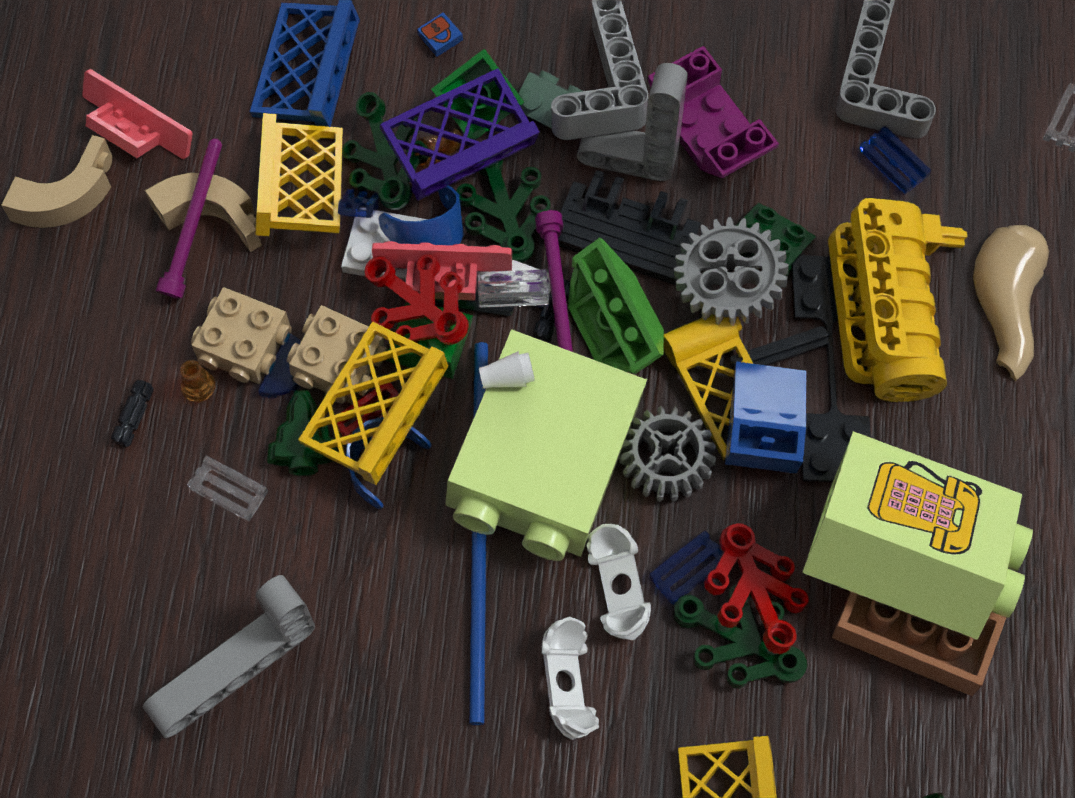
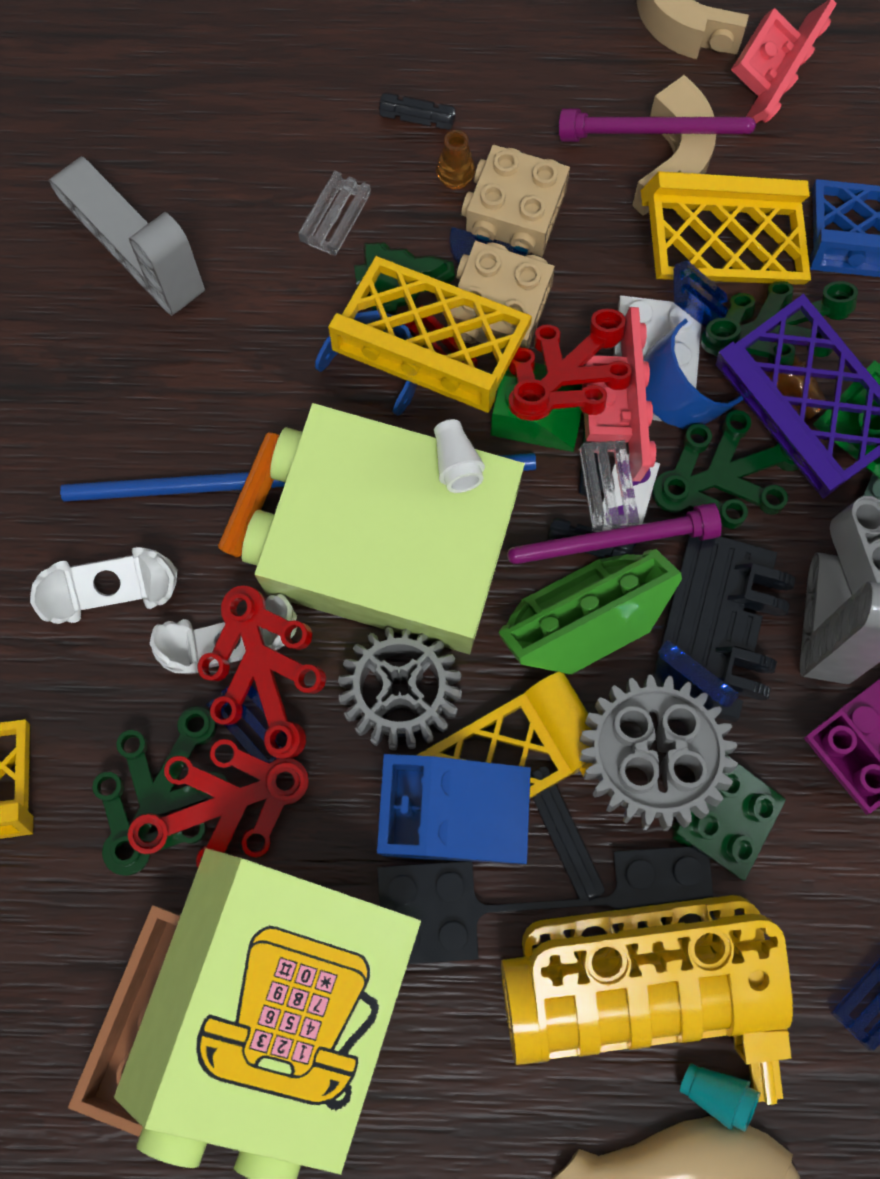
camera: 85 degrees right, 5 degrees up
(496, 558) = (250, 499): none -> orange axle
(647, 550) = (259, 665): none -> red plant
(674, 237) = (699, 674): none -> clear blue tile
(962, 263) = (721, 1095): none -> teal cone

